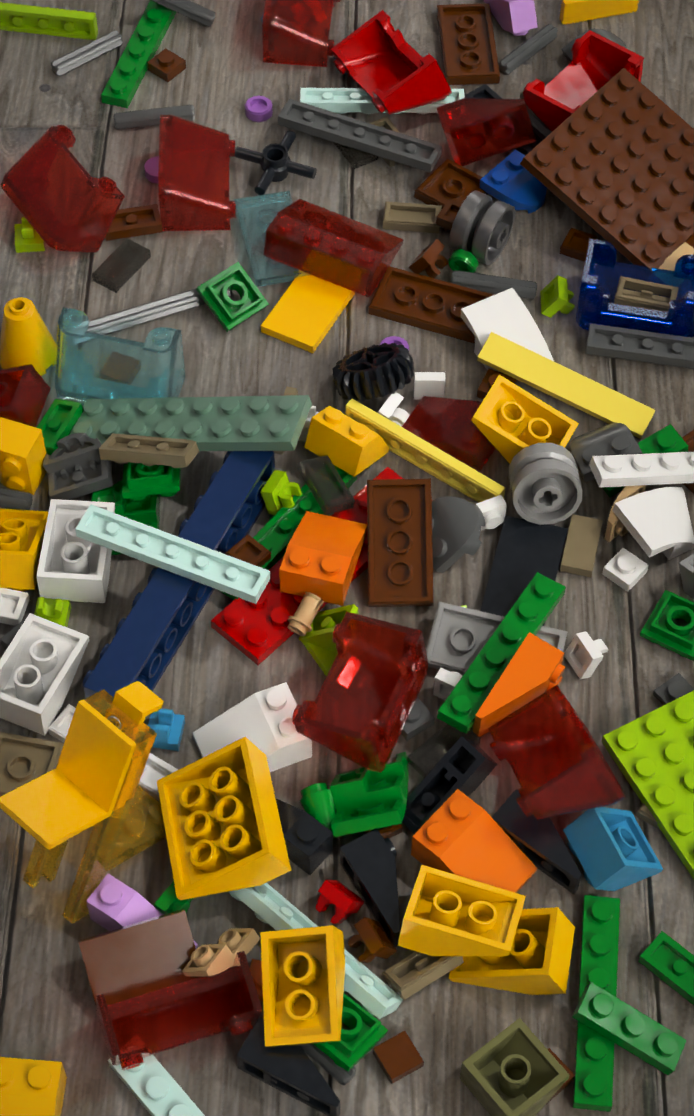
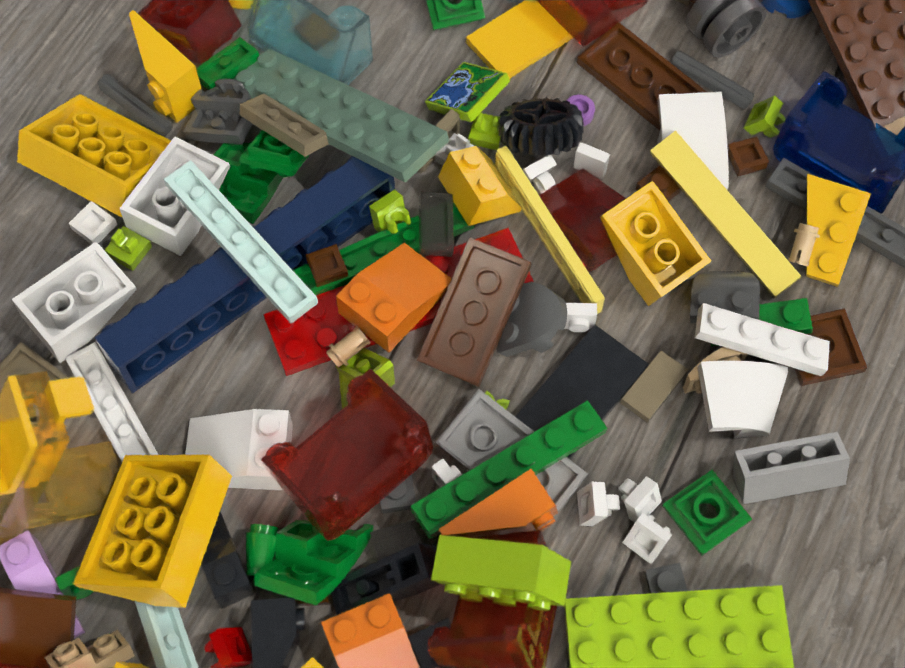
camera: 25 degrees right, 10 degrees up
(168, 729) = (166, 405): dark azure tile -> none
(290, 366) = (468, 91): none -> tile
(323, 394) = (485, 132): none -> lime tile
(428, 258) = (659, 29): reddish brown tile -> none
(463, 261) = (692, 45): green tile -> none
(545, 483) = (644, 310): light grey wheel -> none
(547, 722) = (501, 571): none -> lime brick
(559, 334) = (747, 156): none -> reddish brown plate
(576, 244) = (815, 65): reddish brown tile -> none
(619, 635) = (640, 498): none -> white tile
(625, 569) = (684, 430): white plate -> none
(643, 663) = (647, 538): none -> white tile
(644, 381) = (803, 244): none -> tan pin
(645, 298) = (852, 154): dark tan tile -> none
(660, 362) = (837, 214): none -> yellow wing

